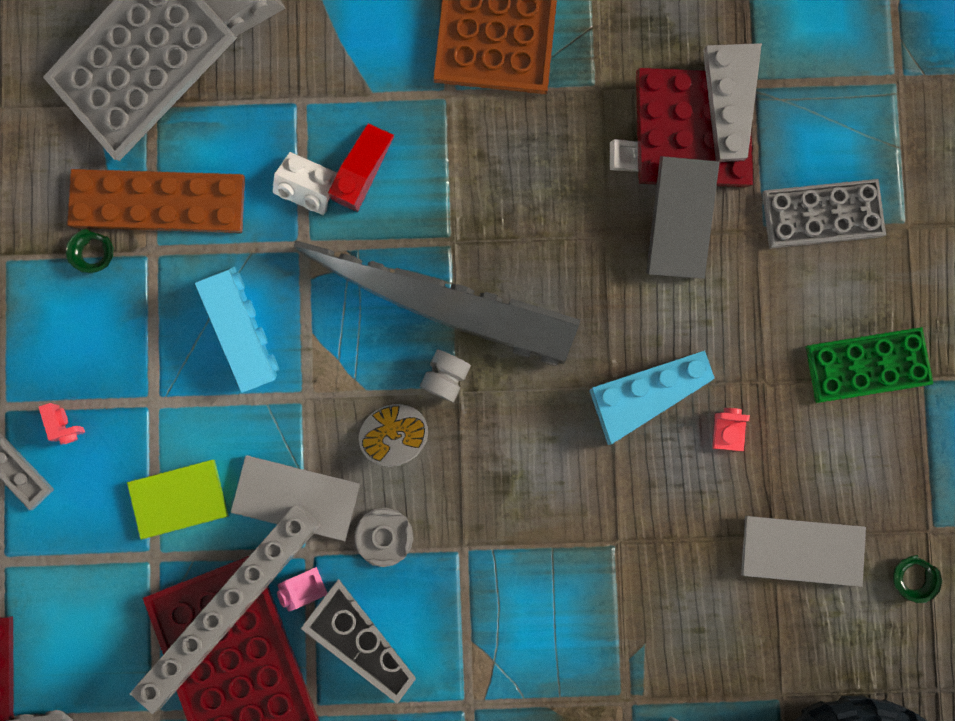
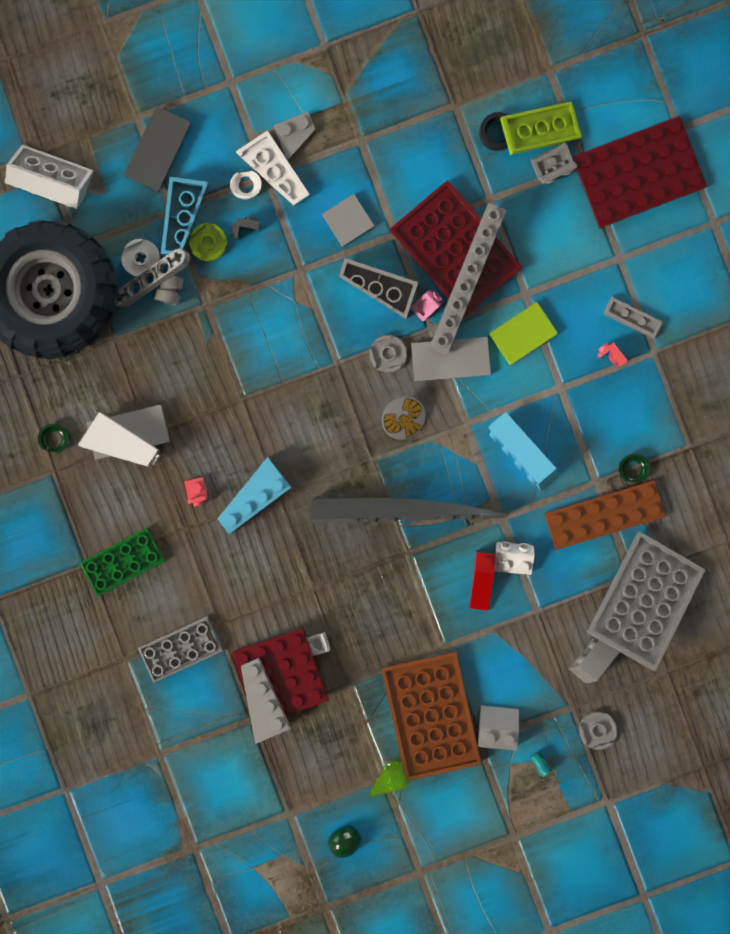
camera: 155 degrees right, 5 degrees up
(445, 375) = (384, 465): light grey wheel -> none
(682, 217) = (269, 614): dark grey tile -> none
(827, 543) = (117, 441): none -> white slope

